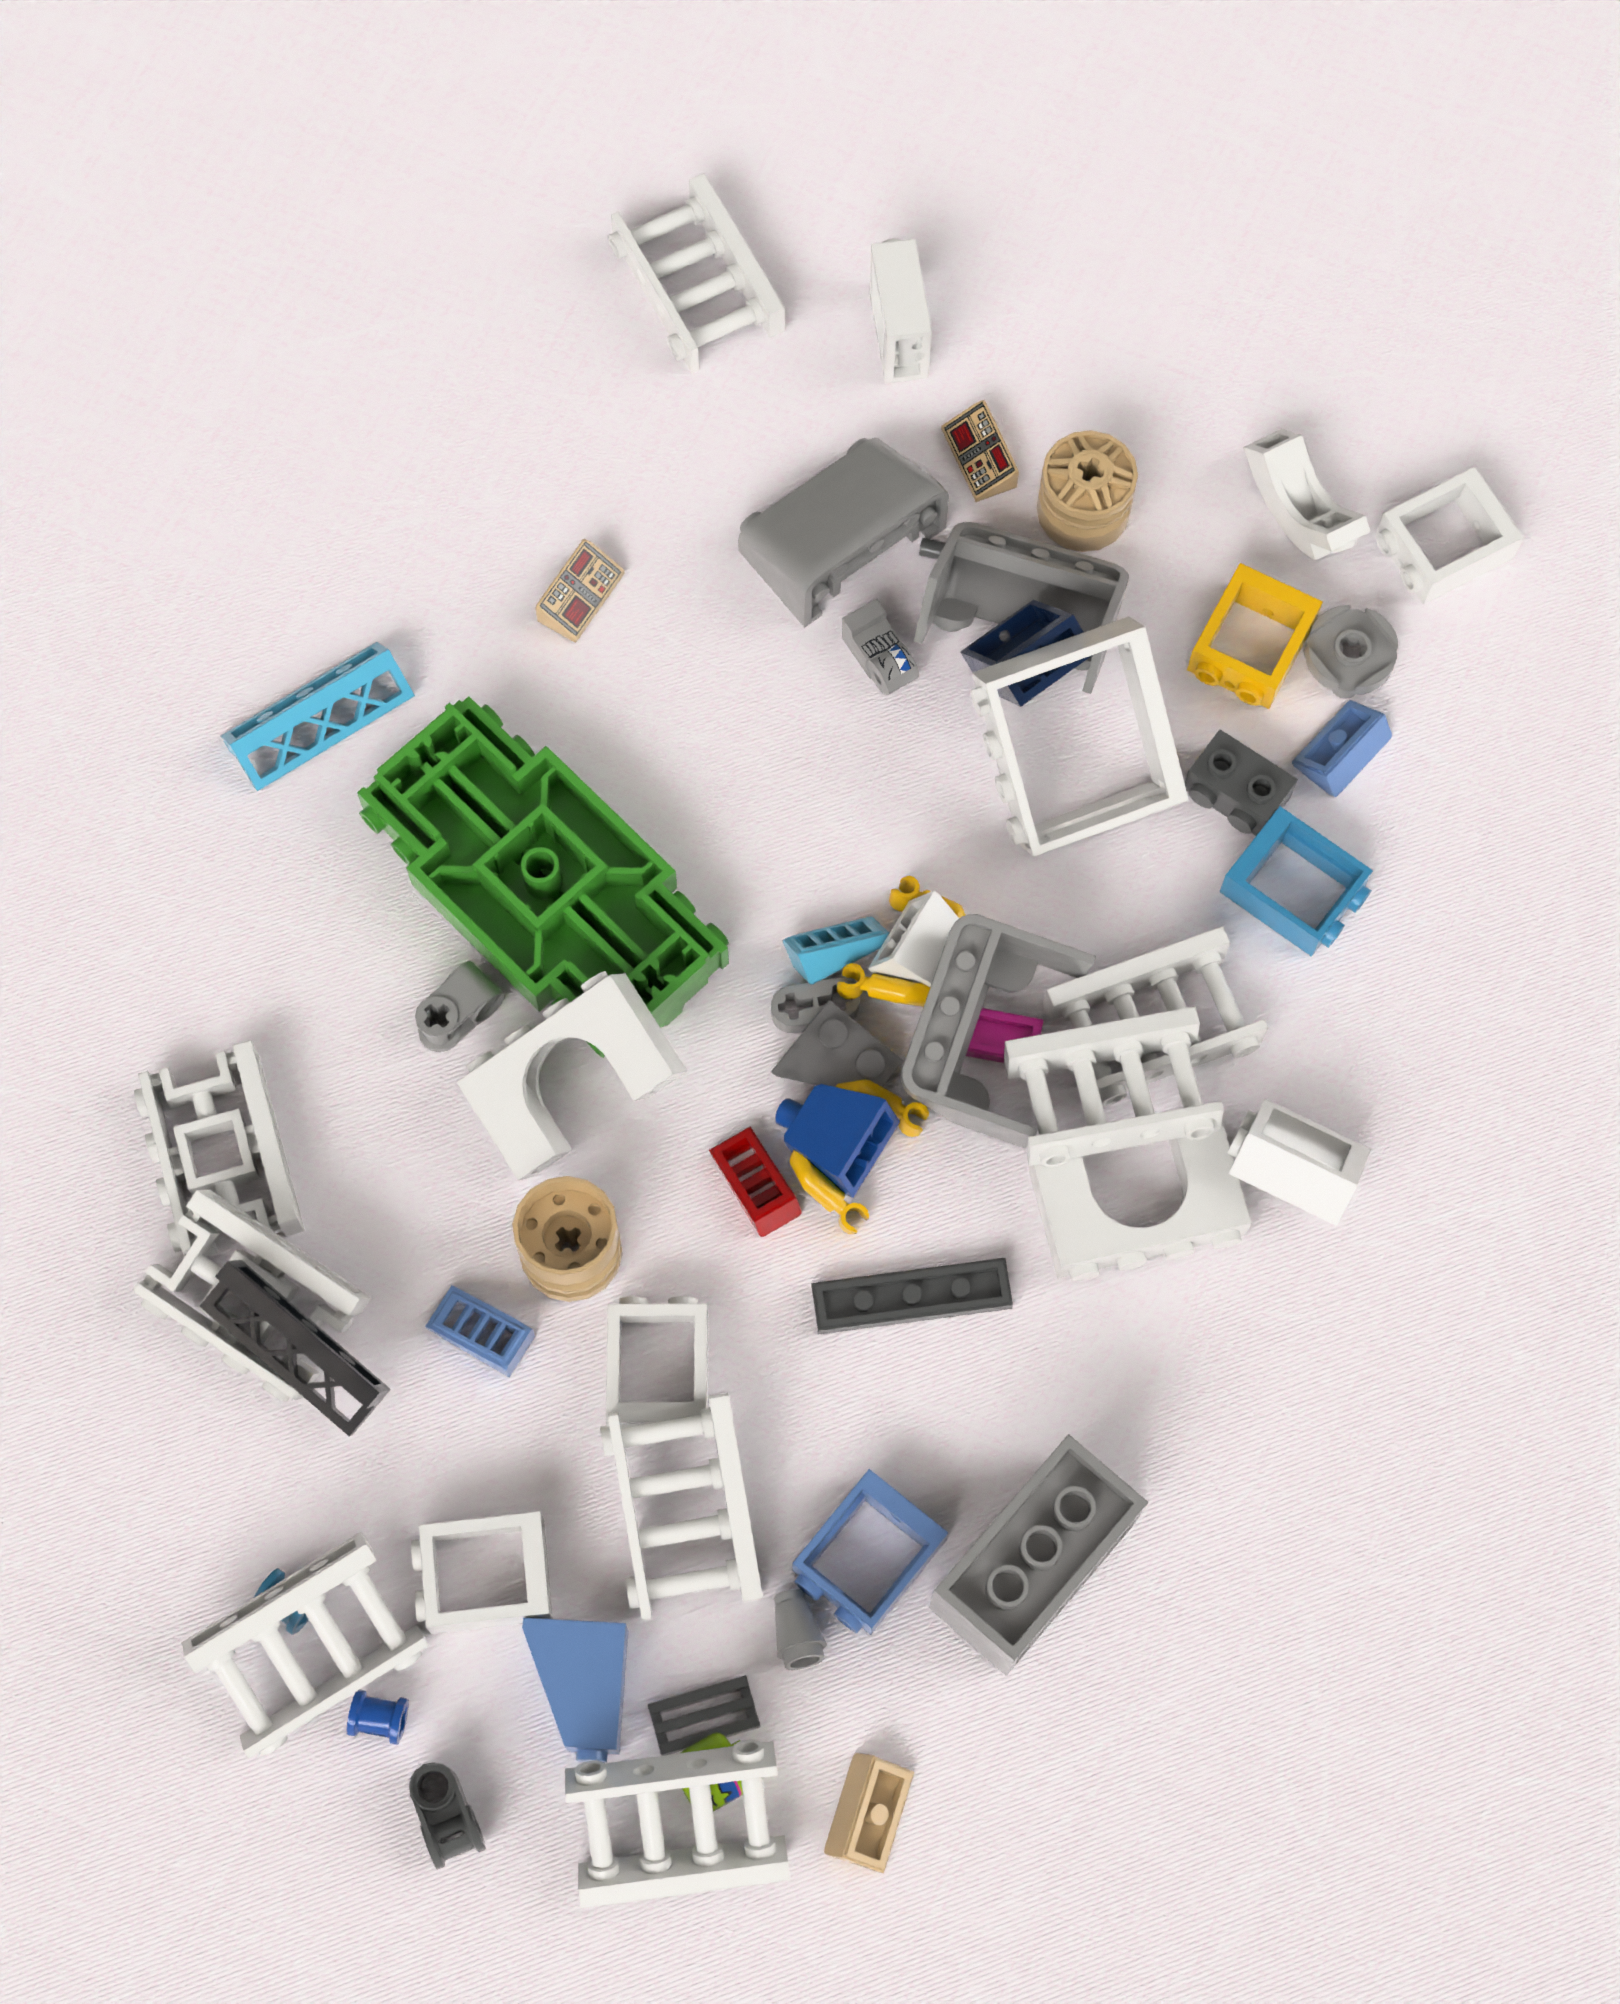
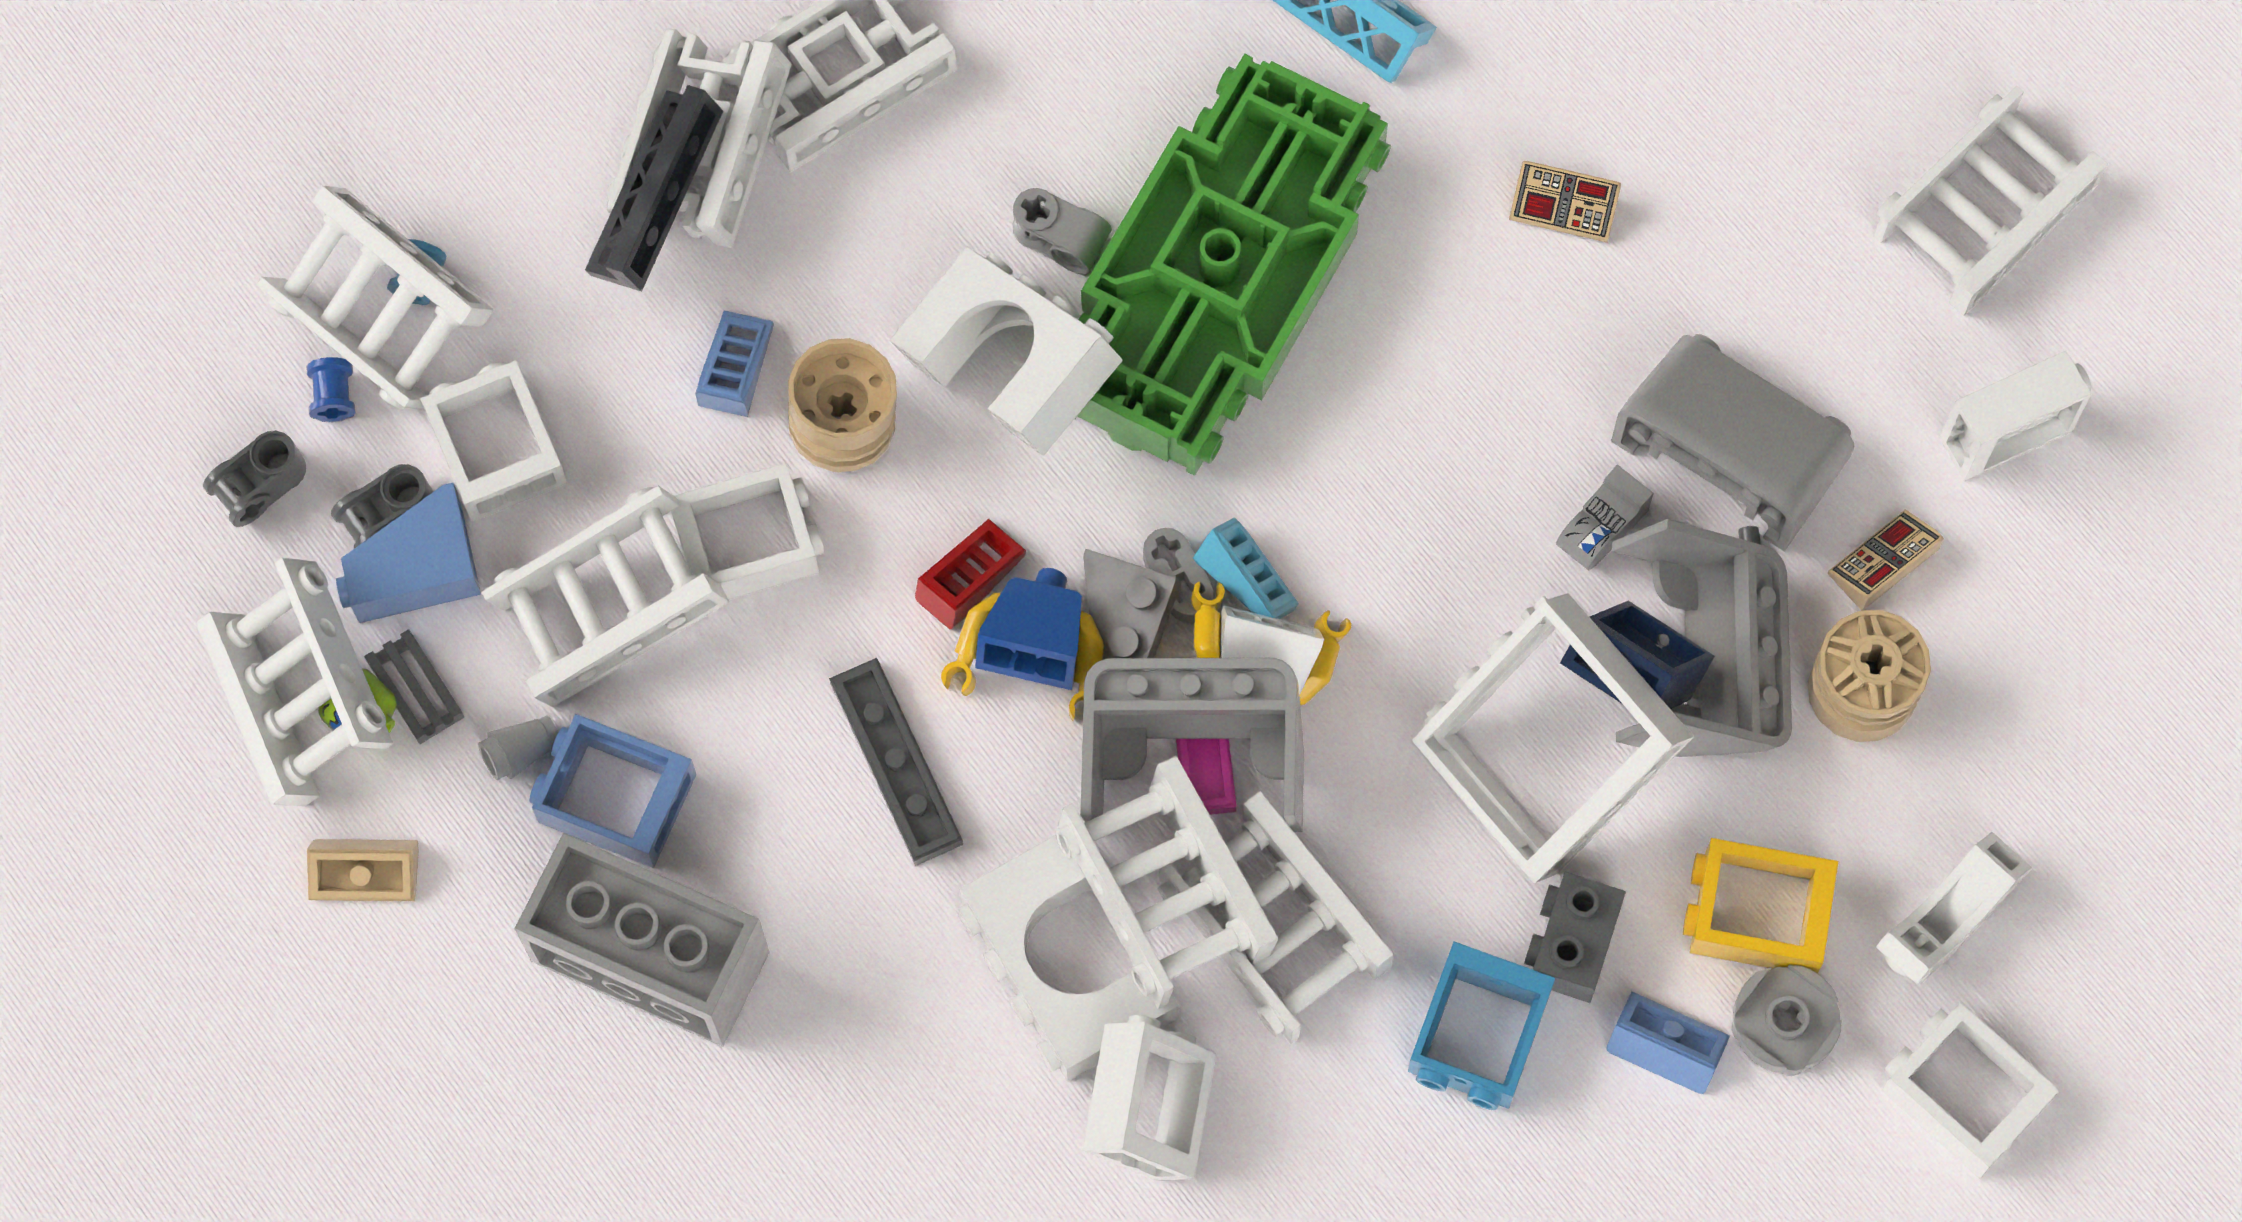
camera: 75 degrees right, 0 degrees up
(520, 1699) = (379, 502): none -> dark grey piece

